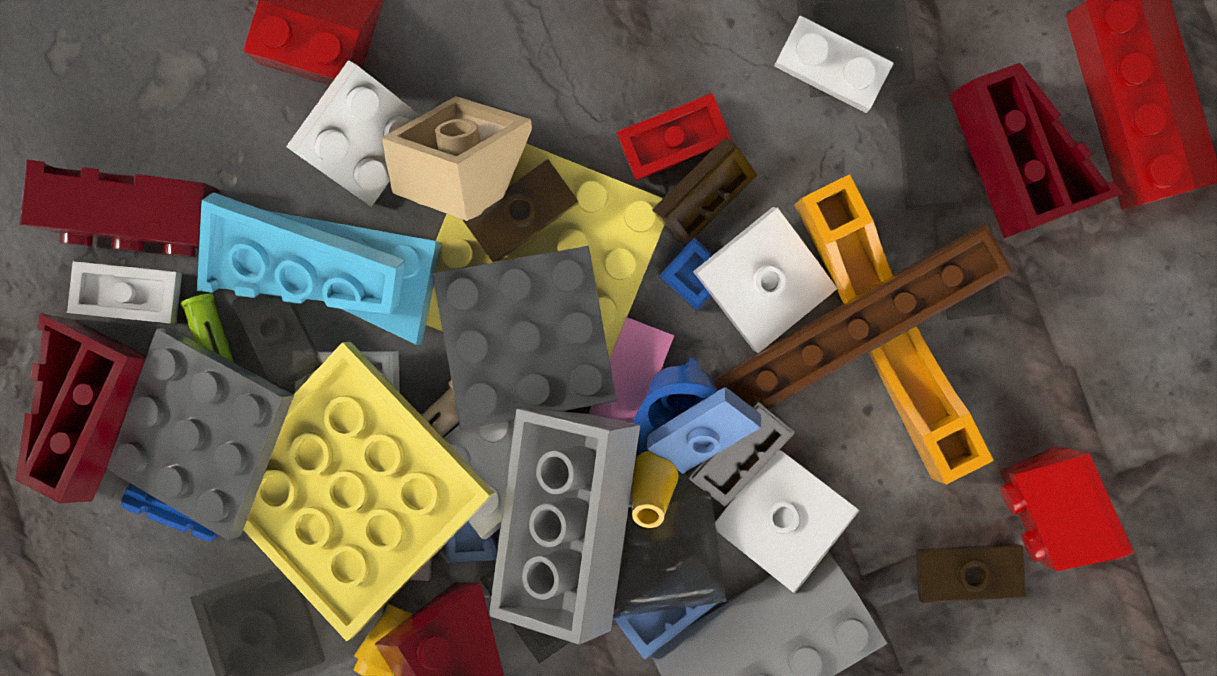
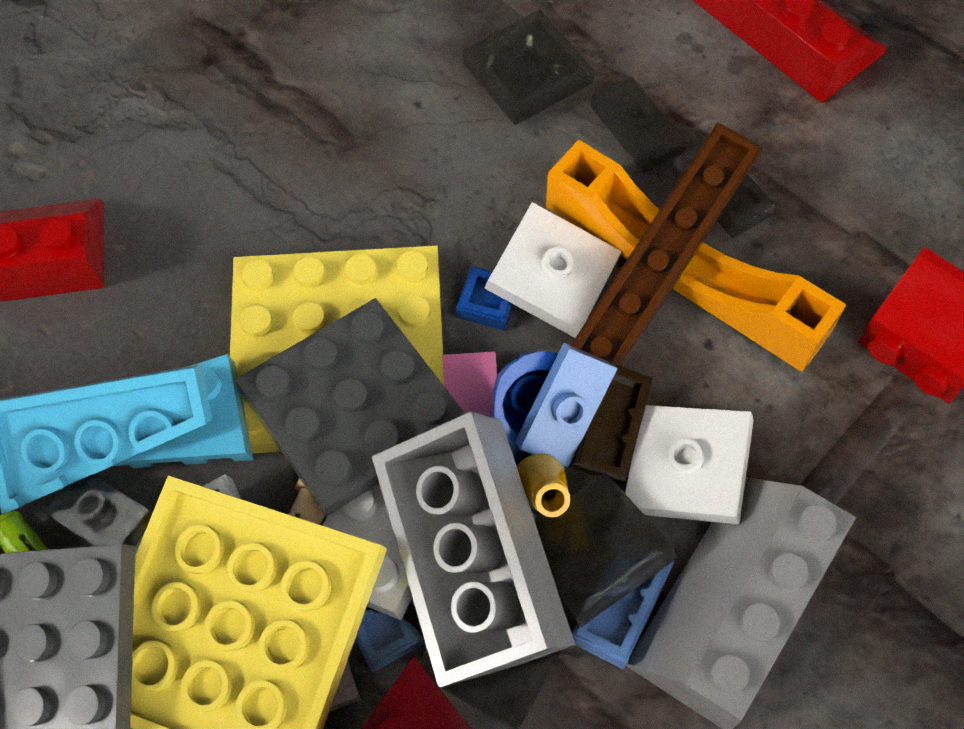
camera: 20 degrees left, 25 degrees down
(347, 132) = (117, 301): white plate -> none
(456, 156) = (216, 283): tan slope -> none
(522, 212) = (299, 299): dark brown plate -> none
(673, 137) = (411, 196): red plate -> none
(705, 191) = (461, 224): dark brown plate -> none
(833, 64) = (519, 82): white plate -> none
(970, 573) = (891, 437): dark brown plate -> none
(1024, 152) = (715, 79): dark red wedge -> none

